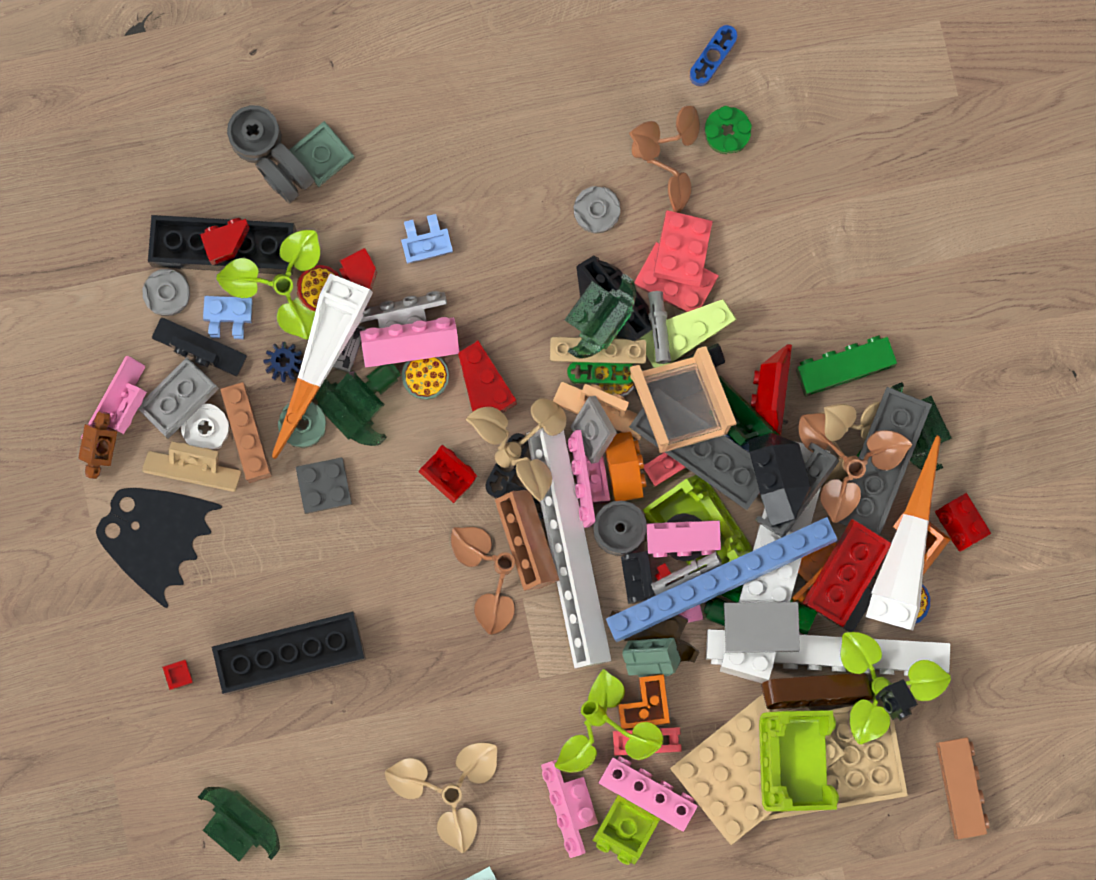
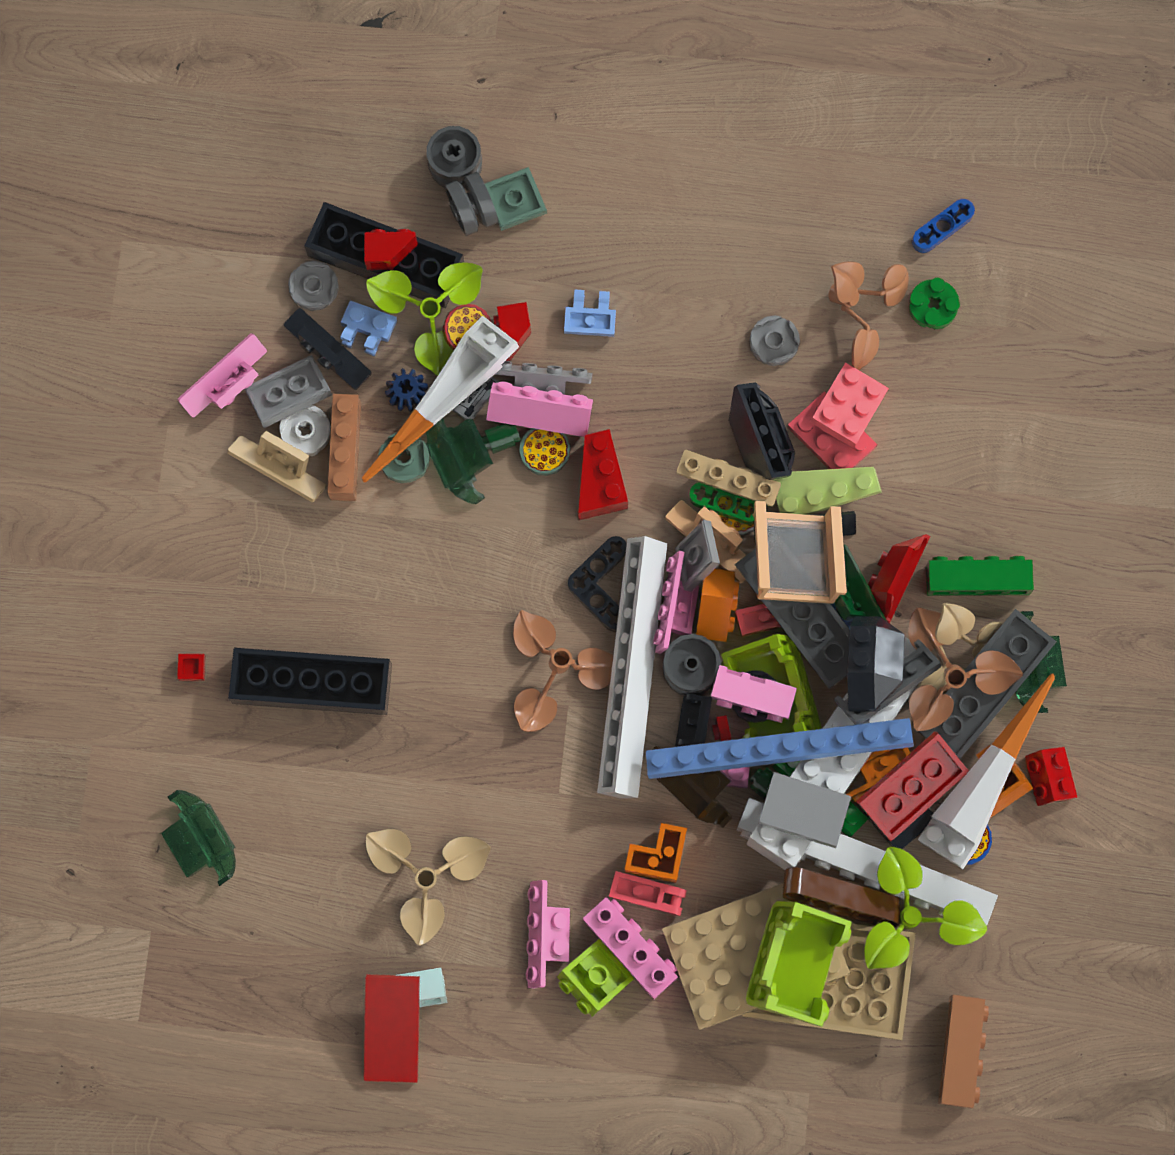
camera: 20 degrees right, 5 degrees down
(93, 435) = (198, 417): dark orange piece -> none
(161, 542) = (222, 530): black piece -> none
(323, 485) = (404, 526): dark grey plate -> none
(448, 473) = (534, 554): red bracket -> none
(492, 425) = (620, 579): tan plant -> none
(527, 539) = (591, 644): nougat brick -> none
(601, 316) = (742, 442): clear green plate -> none
(606, 693) = (621, 829): lime plant -> none
(651, 657) = (680, 806): sand green brick -> none
(660, 335) = (801, 464): light grey pin -> none
(712, 561) = (775, 727): light grey pin -> none
(897, 700) = (923, 934): black brick -> none

